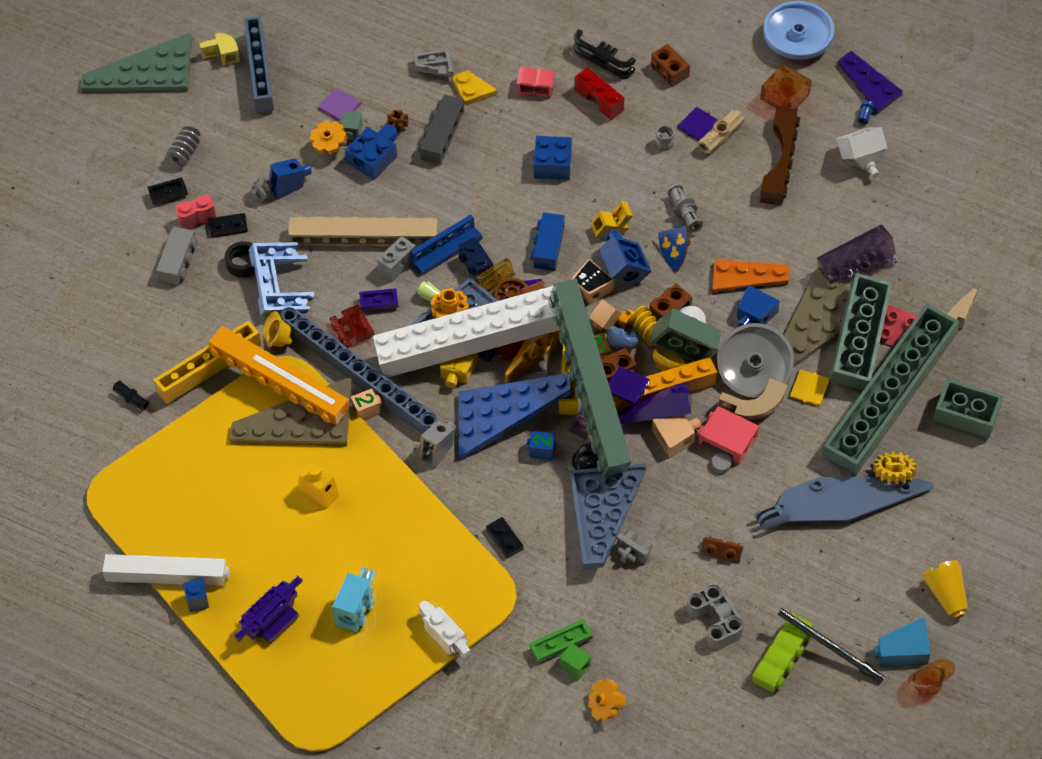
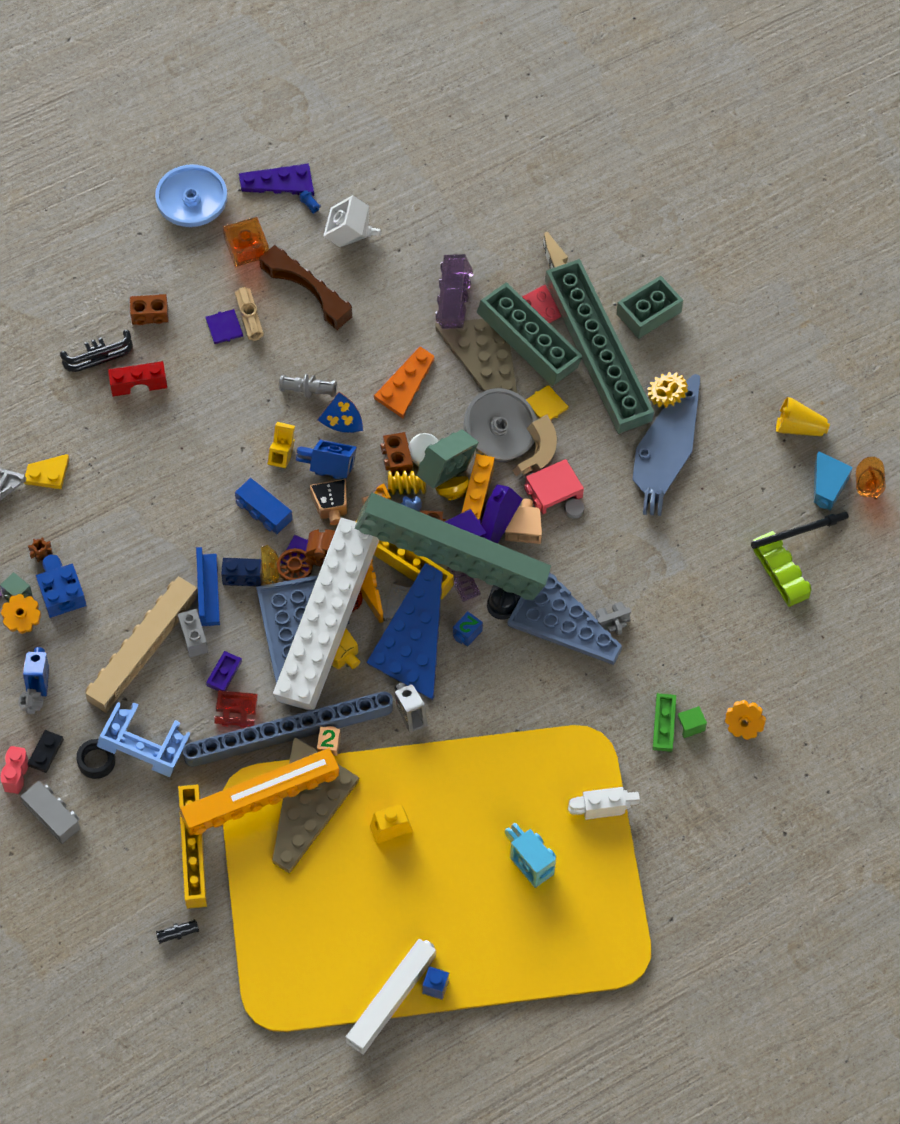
camera: 60 degrees left, 5 degrees up
(270, 613) = (495, 930): dark purple piece -> none
(276, 331) = (197, 772): yellow piece -> none
(427, 291) = (246, 628): yellowish green cone -> none
(442, 129) = (78, 519): dark grey brick -> none
(448, 302) = (279, 618): light orange plant -> none
(504, 537) = (535, 709): black plate -> none
(535, 82) = (84, 419): coral brick -> none
(552, 157) = (178, 452): blue brick -> none
(664, 137) = (222, 358): light grey wheel -> none
(719, 549) = (661, 552): dark orange hinge -> none
(721, 611) = (717, 589): light grey beam -> none
(756, 307) = (445, 395): blue torso -> none

